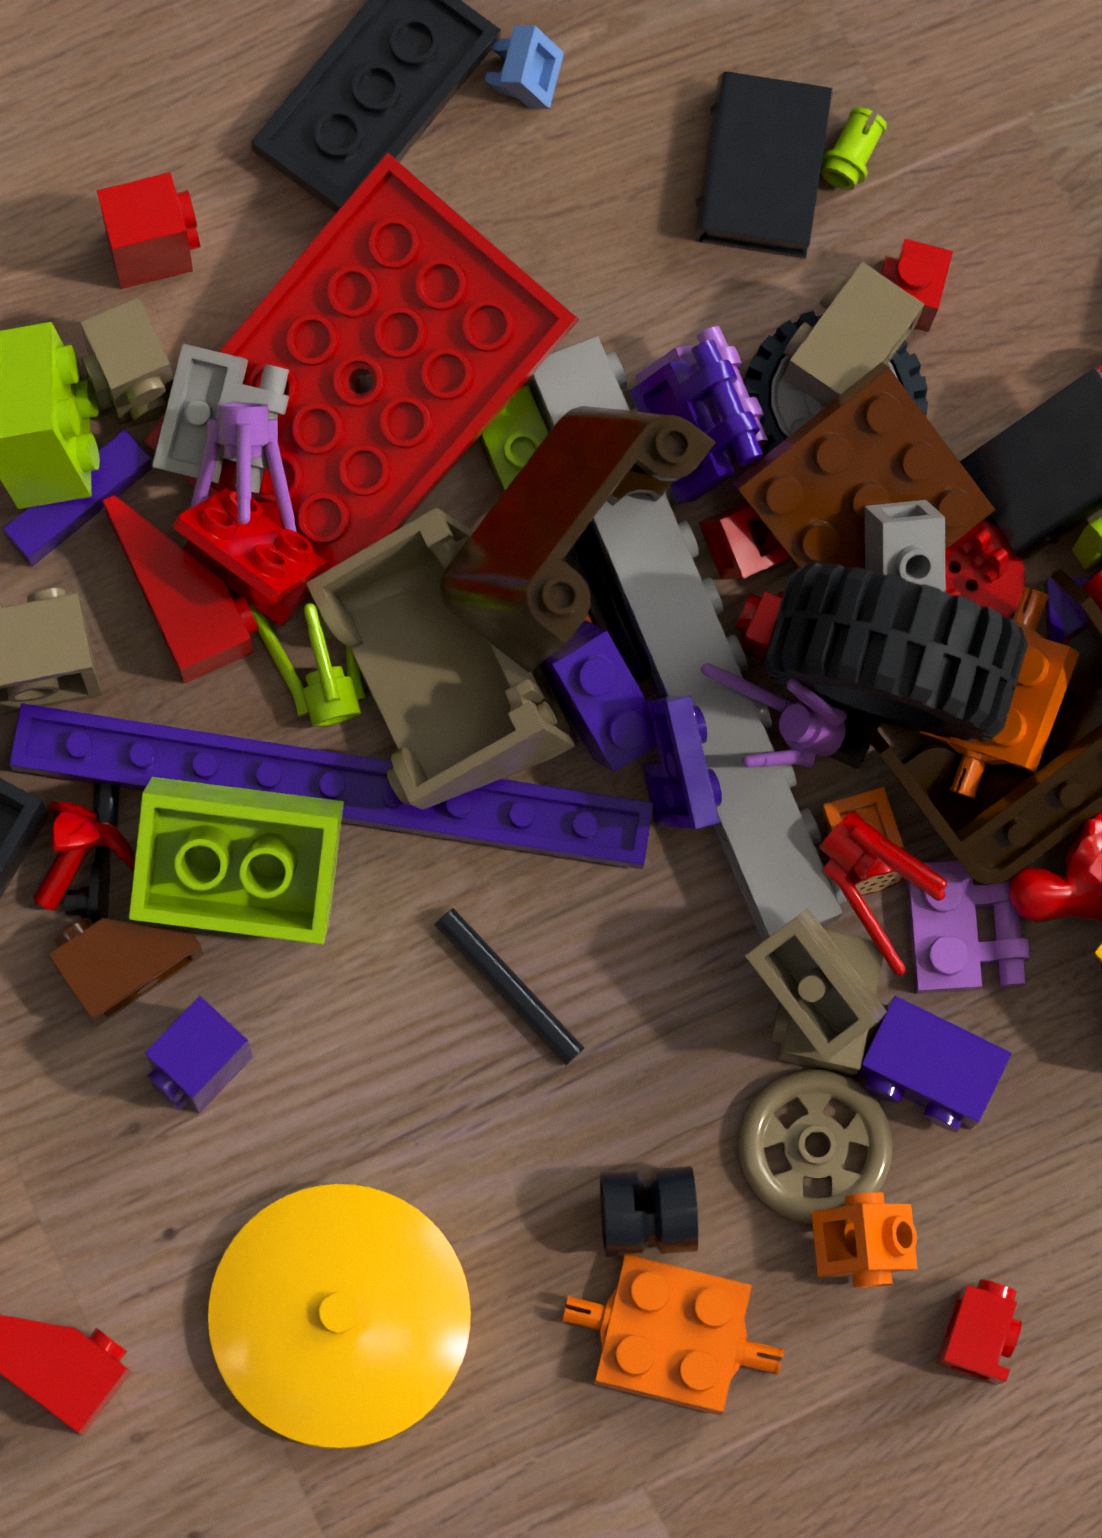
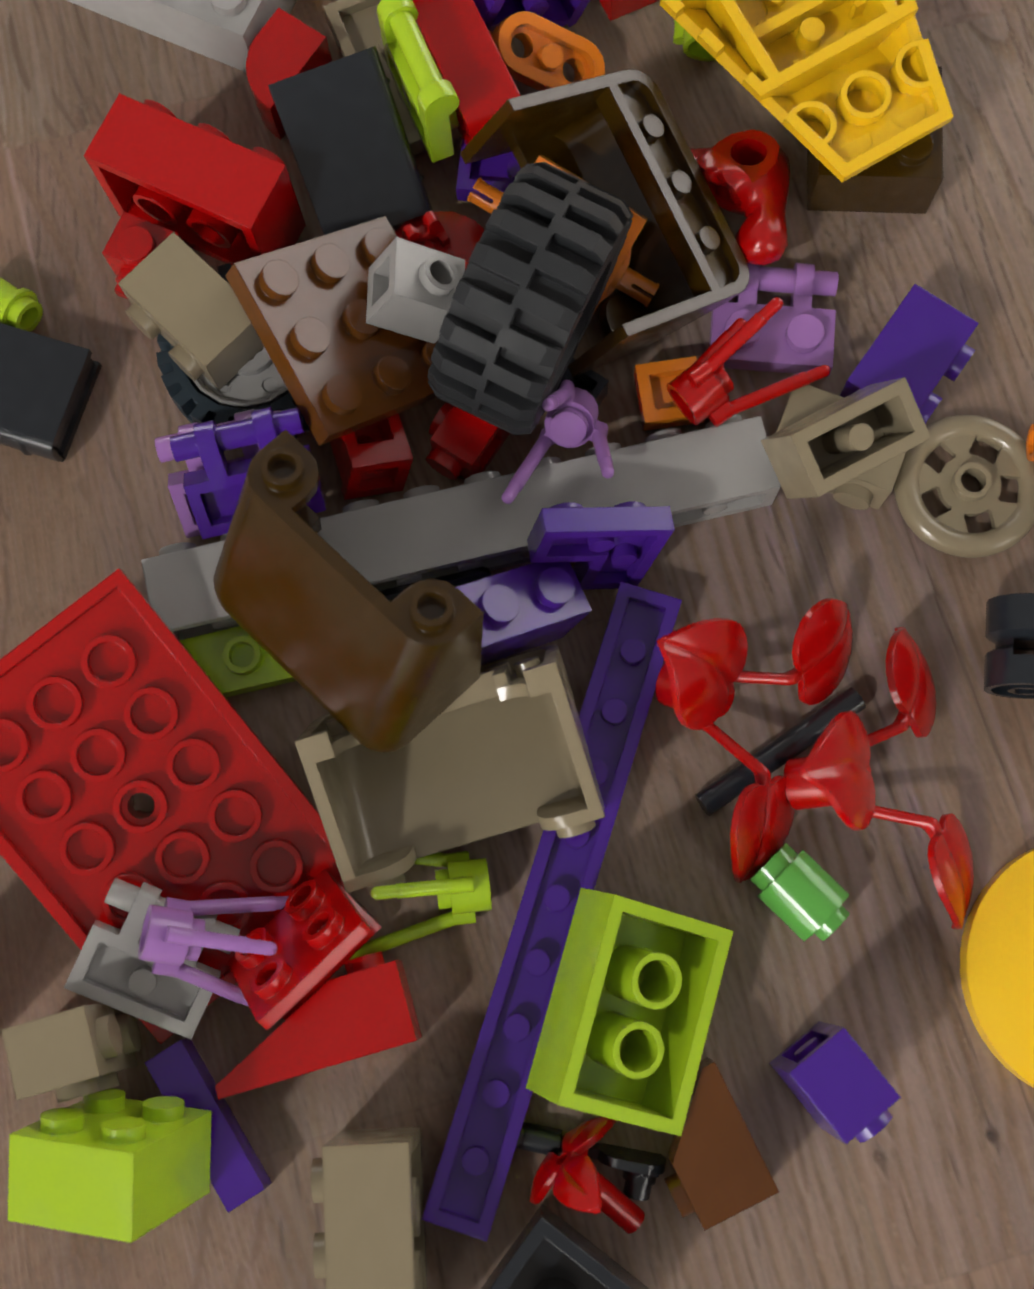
camera: 65 degrees left, 0 degrees up
(371, 1017) = (801, 893): none -> bright green brick
(482, 1016) = (841, 777): none -> red plant
(558, 881) = (699, 686): none -> red plant
(996, 320) = (194, 182): none -> red brick

